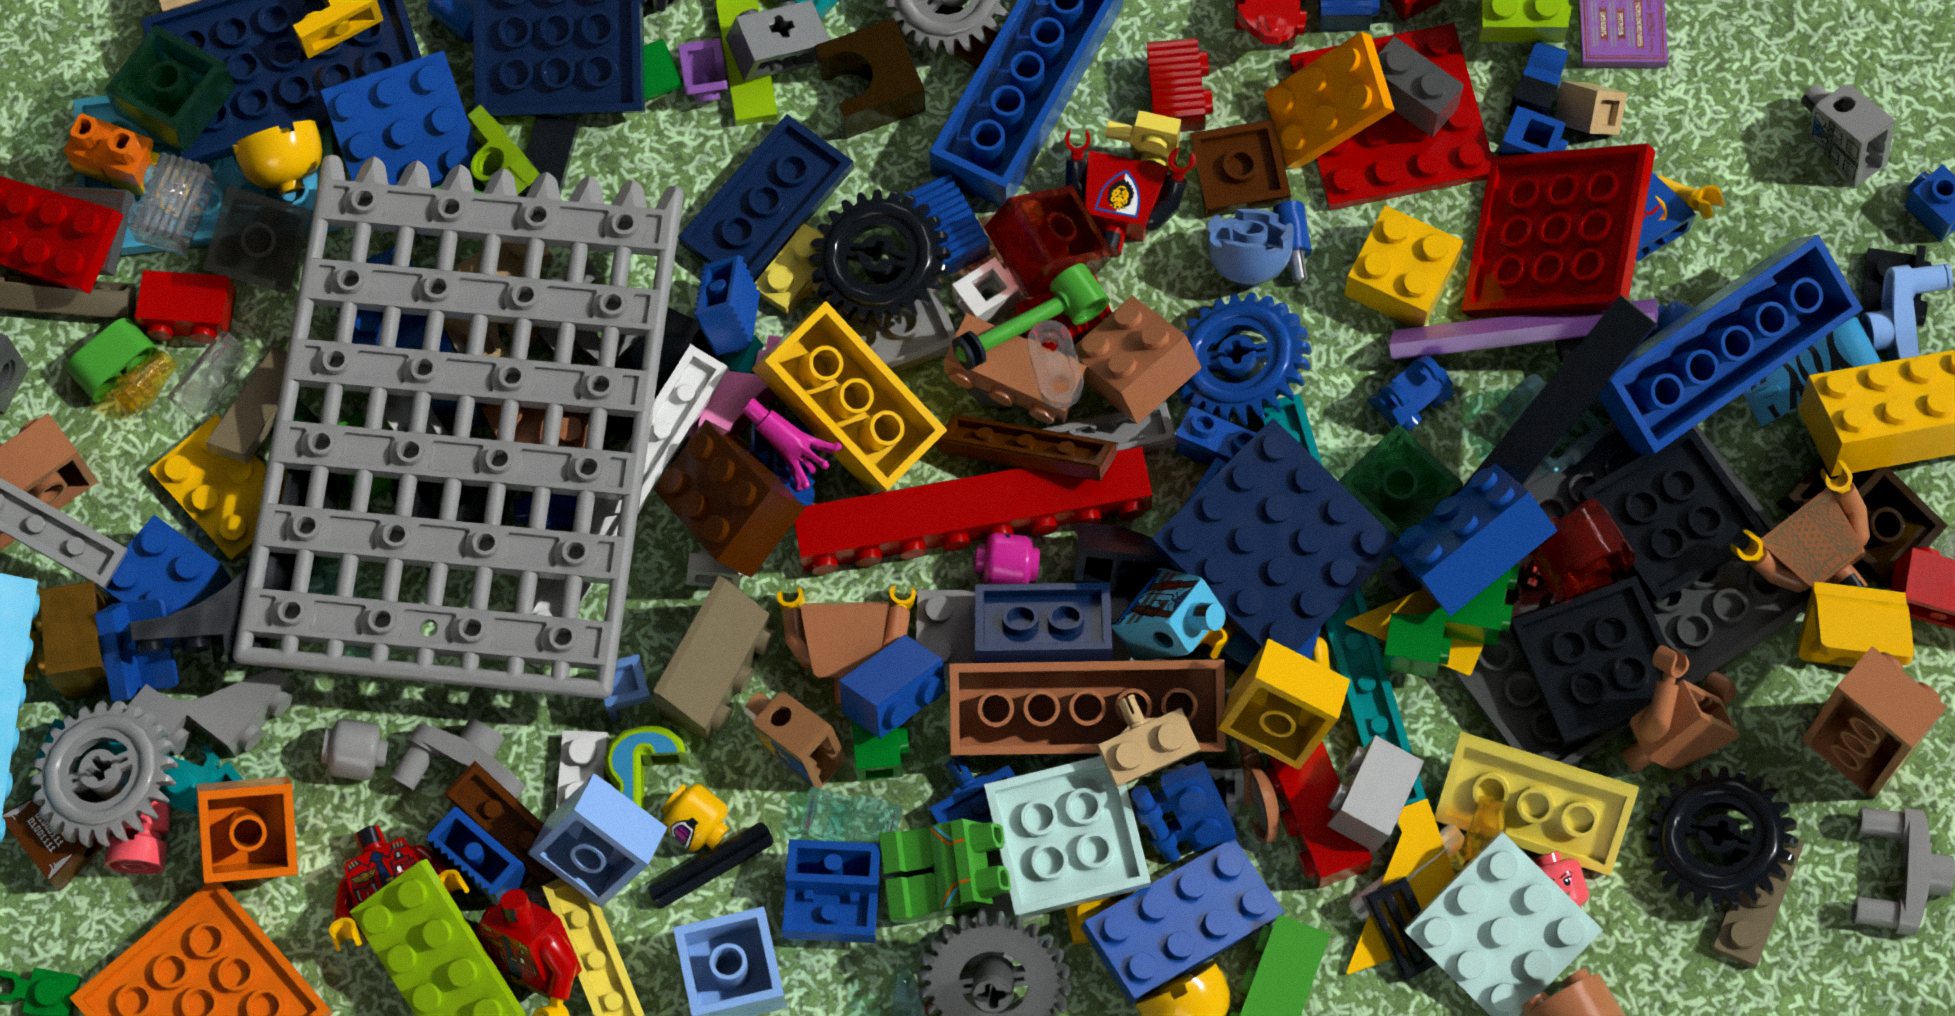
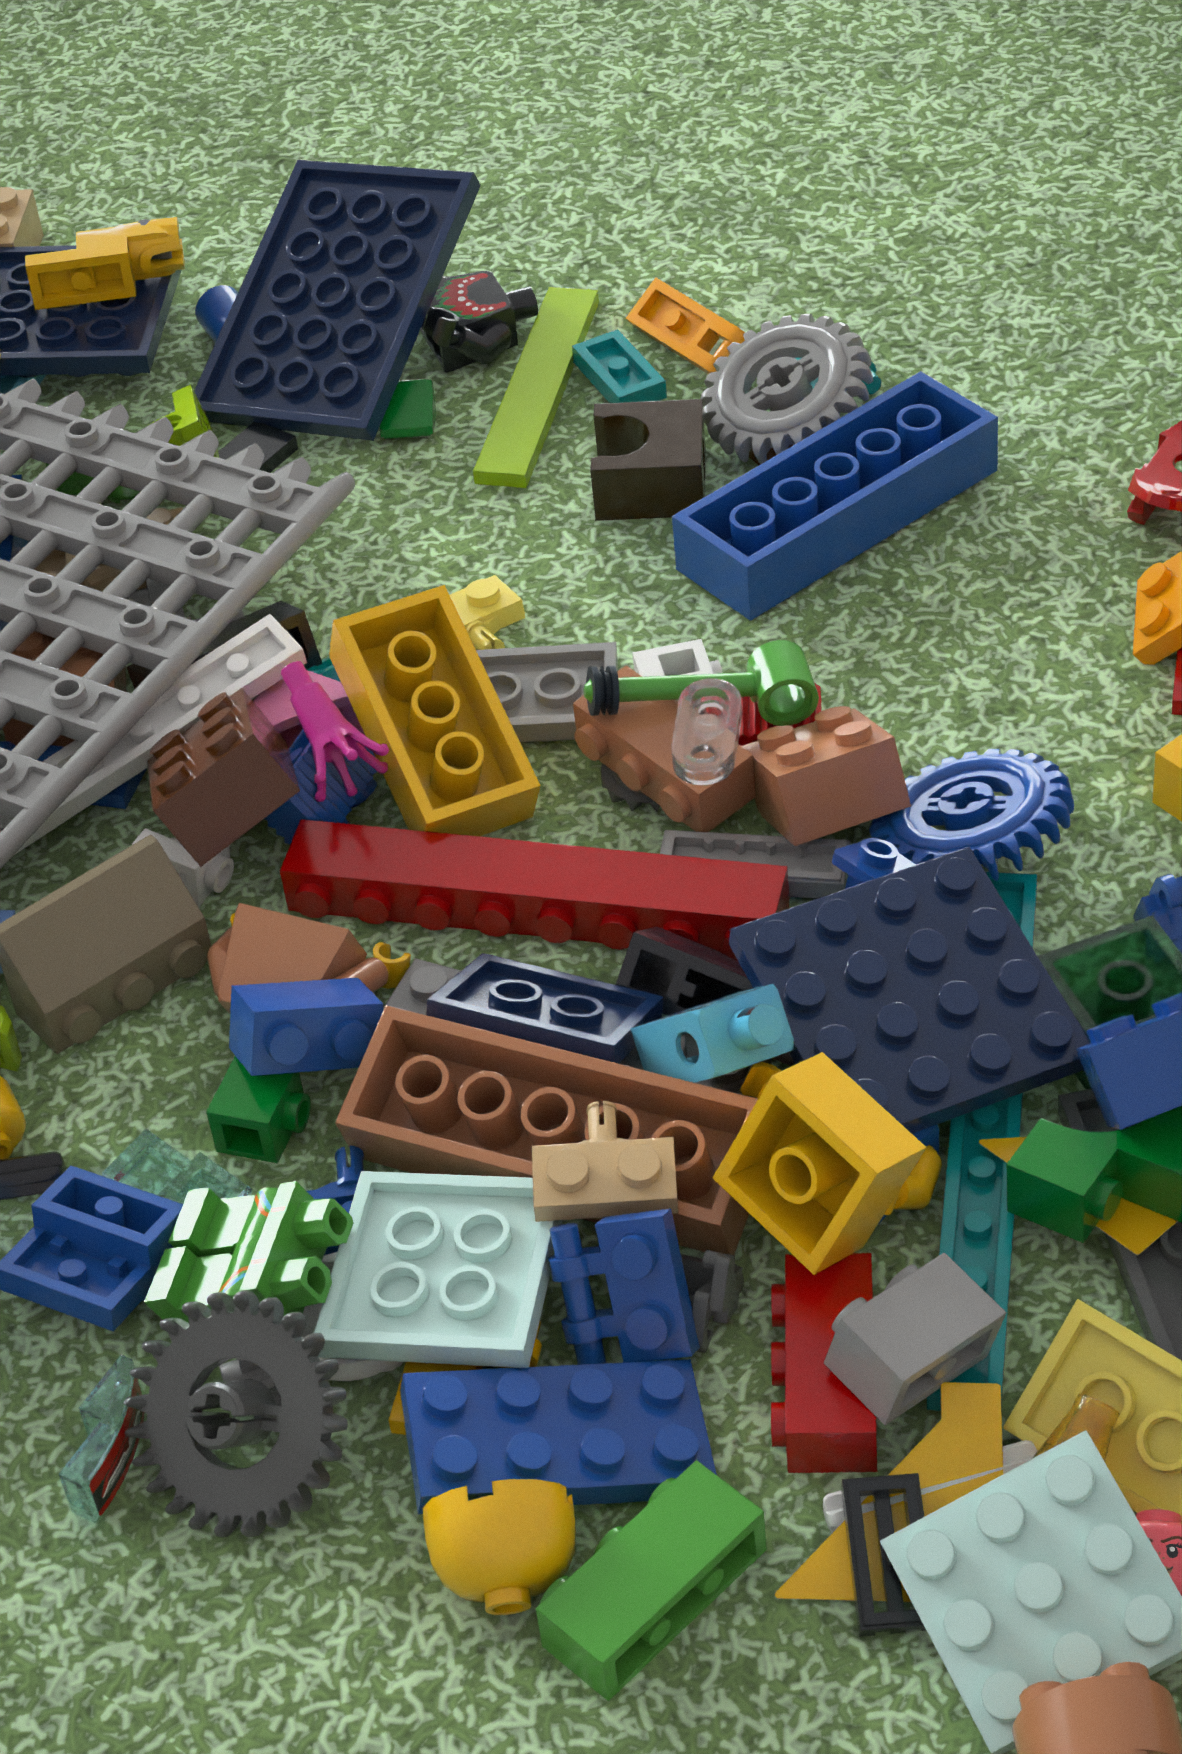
camera: 25 degrees right, 25 degrees down
(402, 118) = (102, 358): blue plate -> none
(703, 69) = (462, 418): medium lavender bracket -> none
(727, 305) = (336, 595): blue brick -> none
(768, 198) = (465, 542): dark blue plate -> none
(776, 39) = (554, 400): brick -> none
(796, 737) = (152, 1041): medium nougat torso -> none
(898, 289) = (562, 617): black gear -> none
(966, 236) = (661, 602): blue brick -> none
(1007, 560) = (548, 942): dark pink head -> none
(1027, 447) = (637, 833): reddish brown tile -> none
(1045, 235) = (763, 605): clear red brick -> none
(1125, 193) = (902, 627): torso -> none
(1150, 136) = (963, 572): light yellow plate -> none
(1176, 82) = (1026, 544): red brick -> none
(1240, 167) = (1069, 640): reddish brown plate -> none
(1250, 246) = (1038, 708): medium blue cylinder -> none
(1261, 792) = (754, 1305): nougat piece -> none
(1294, 213) = (1108, 720): blue piece -> none

